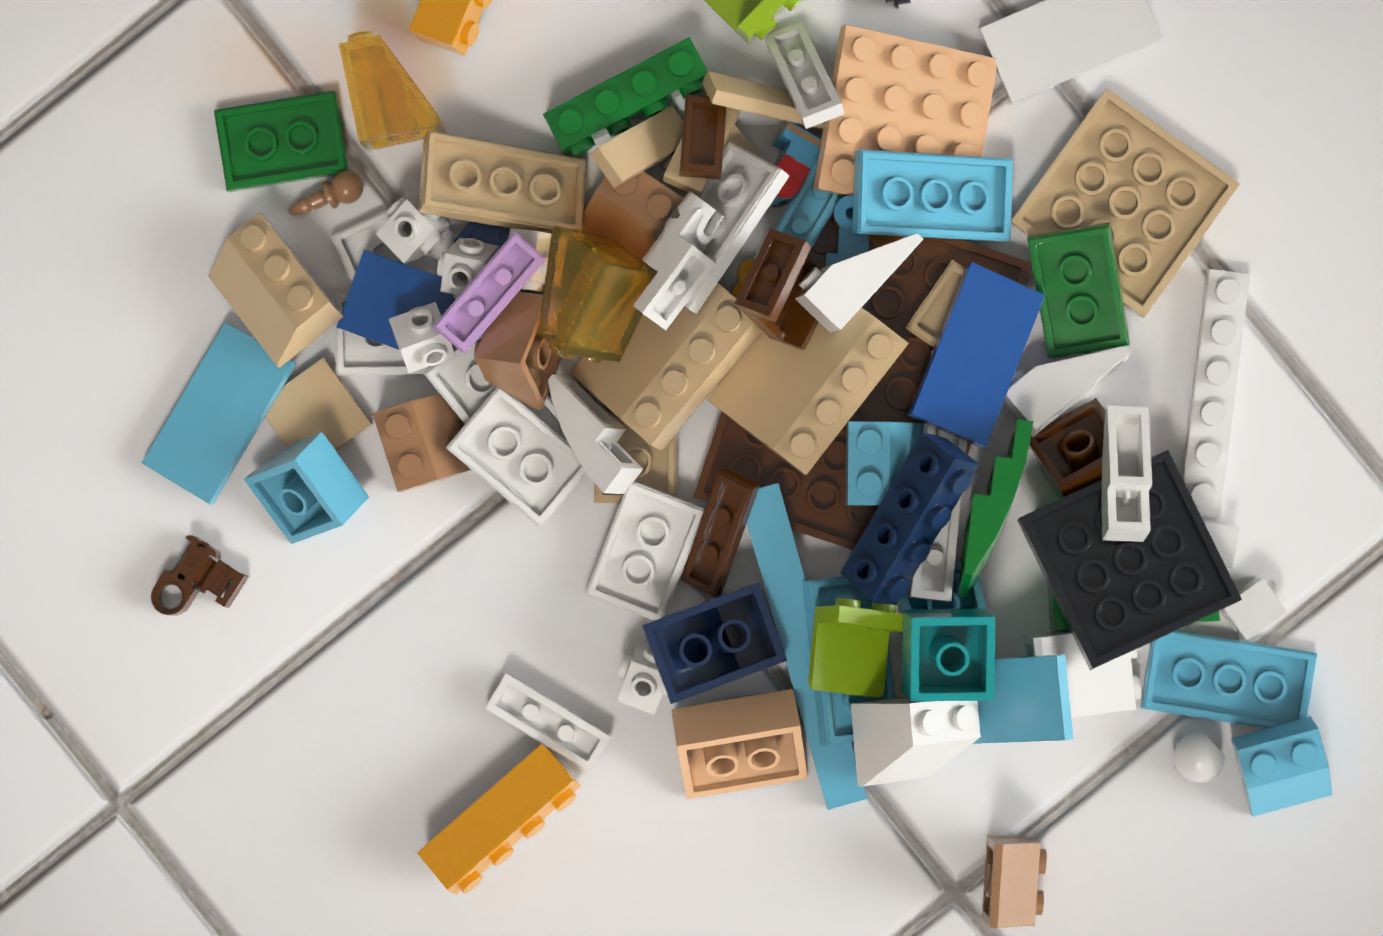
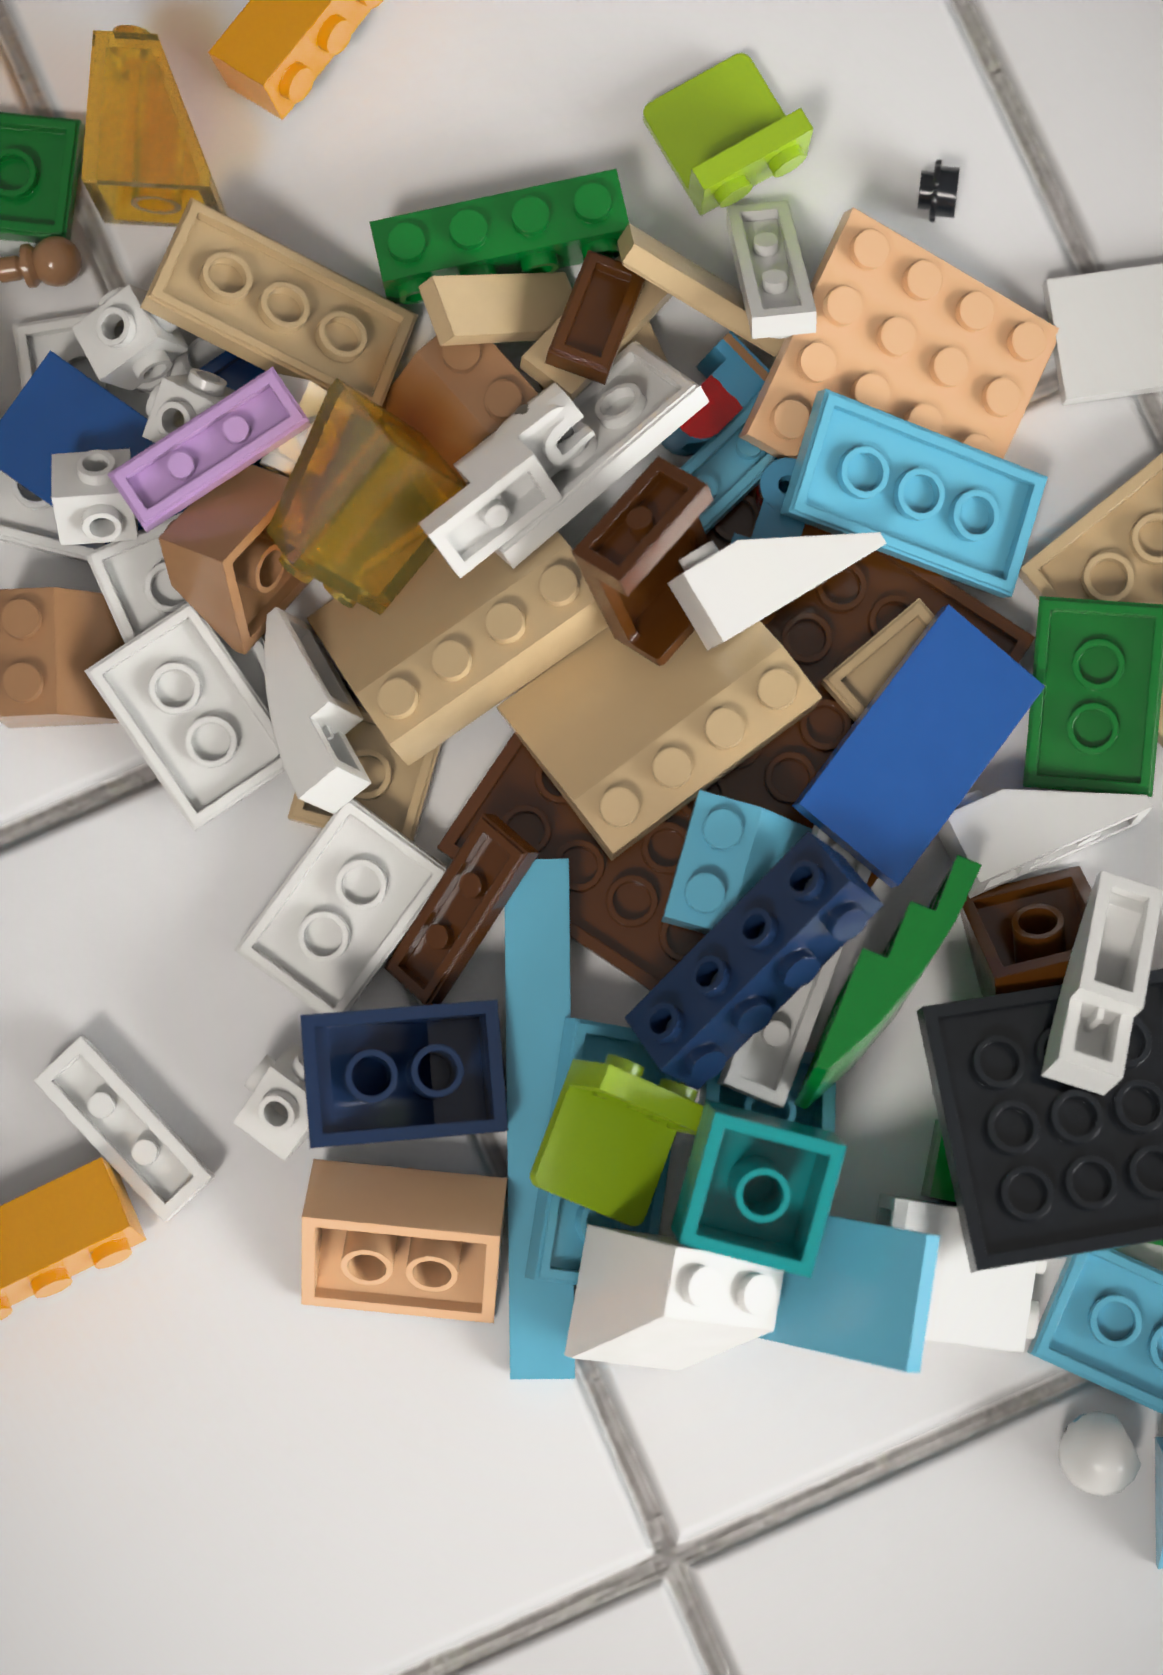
camera: 15 degrees right, 5 degrees down
(1012, 881) = (762, 1571): slope -> none

